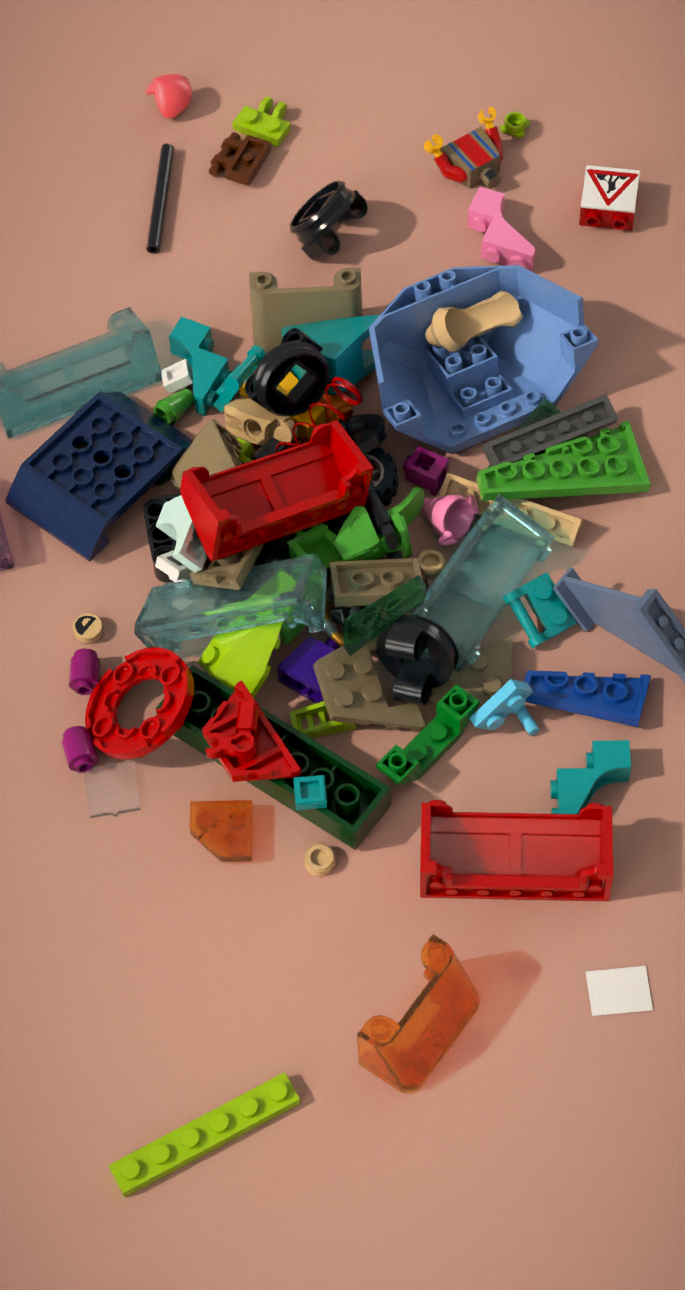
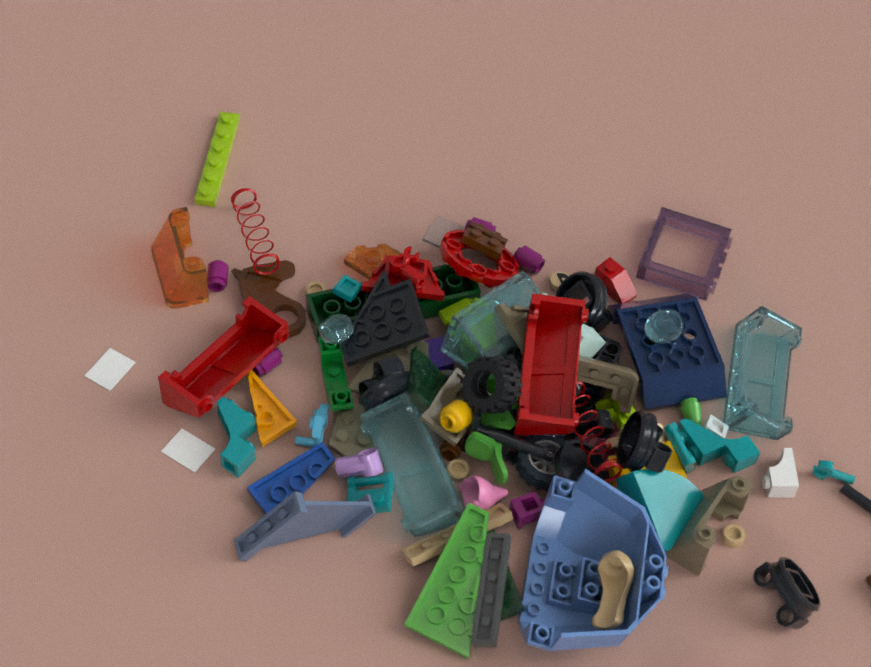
camera: 120 degrees right, 5 degrees down
(47, 574) = (616, 281): none -> red slope
(95, 589) = (584, 284): none -> black piece
(99, 458) = (664, 326): none -> clear light blue hat
(115, 713) = (484, 240): none -> reddish brown plate
(146, 261) = (826, 469): none -> teal bar
(187, 294) = (782, 479): none -> white arch
(255, 1033) = (264, 255): none -> red piece
(329, 712) = (385, 322): none -> black wing
(345, 529) = (476, 385): none -> black tyre
(382, 756) = (336, 329): none -> clear light blue hat
(383, 902) = (263, 290): none -> reddish brown animal
(395, 973) = (217, 275): none -> magenta brick
(397, 559) = (456, 416): none -> yellow head
(520, 640) = (365, 462): none -> lavender piece
(530, 773) = (270, 414): none -> light orange wing
(641, 826) = (188, 450): none -> white sticker

